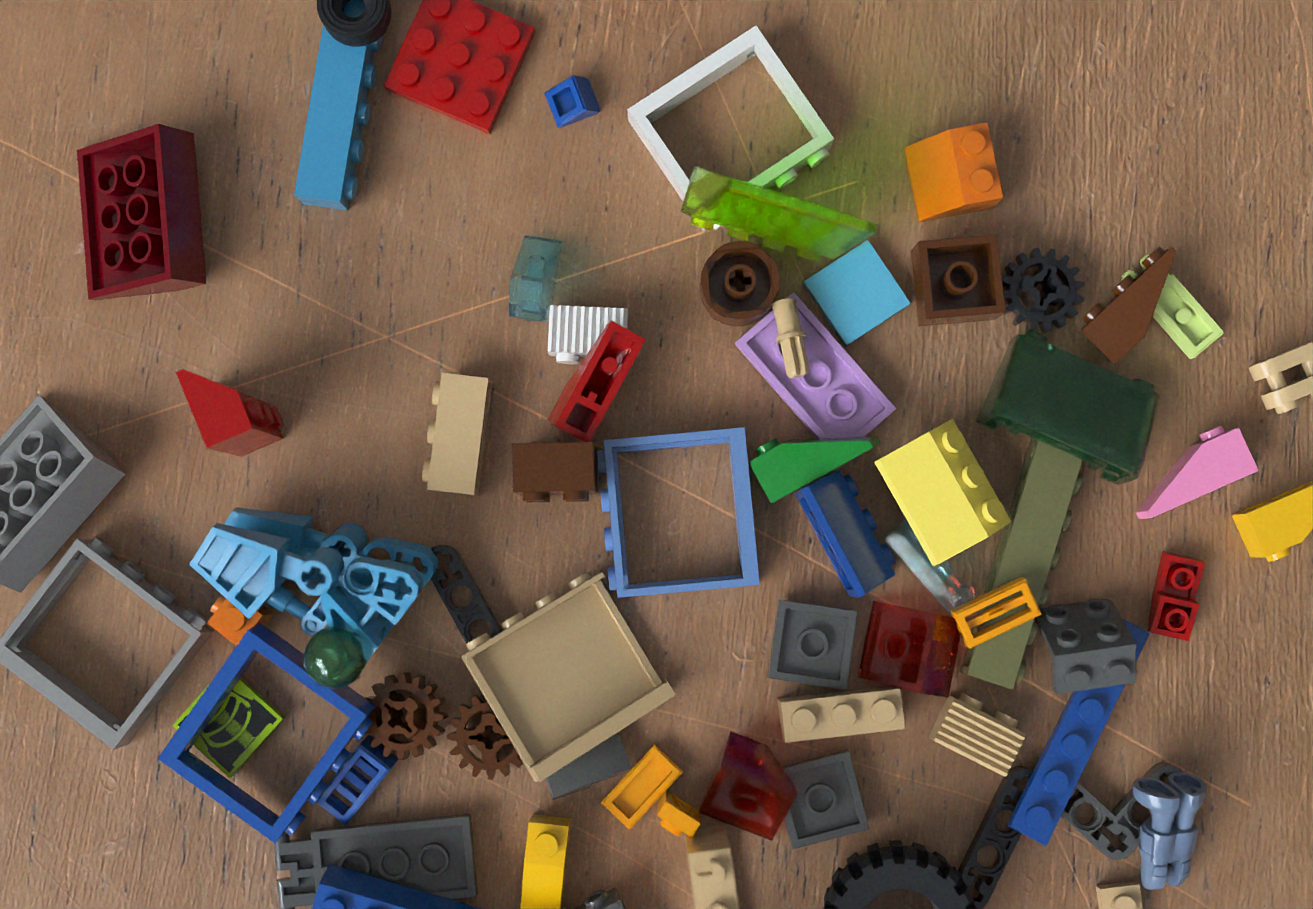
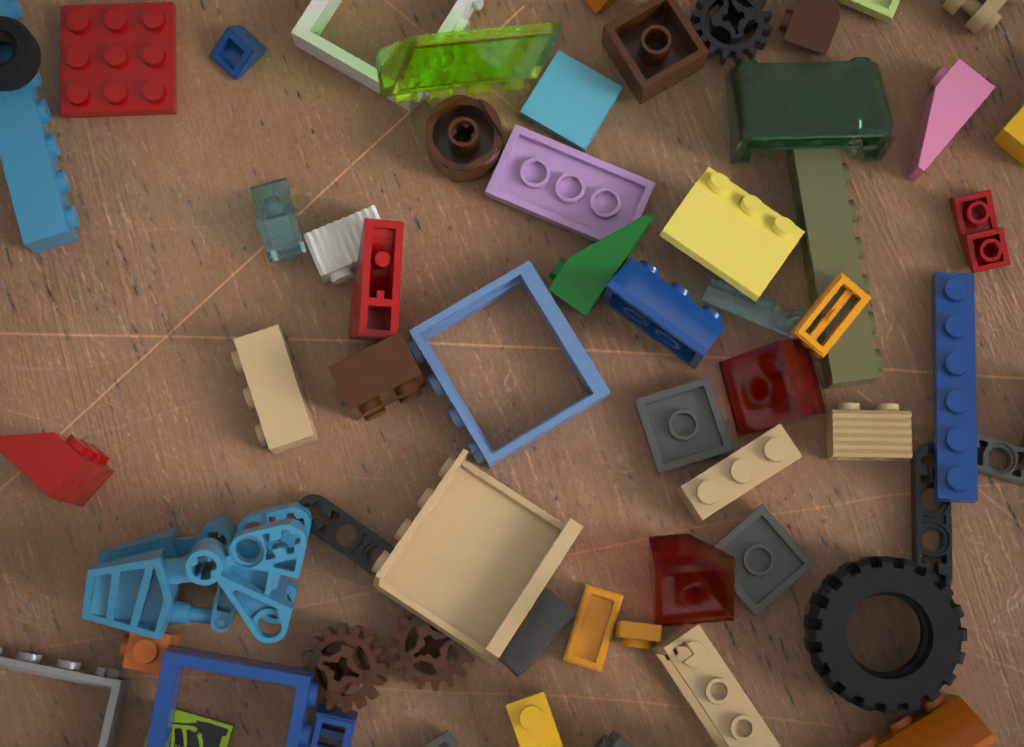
camera: 30 degrees left, 5 degrees down
(334, 658) = (256, 637): clear green hair -> none
(791, 337) = (532, 162): tan axle -> none
(1087, 646) = (926, 308): dark grey bracket -> none

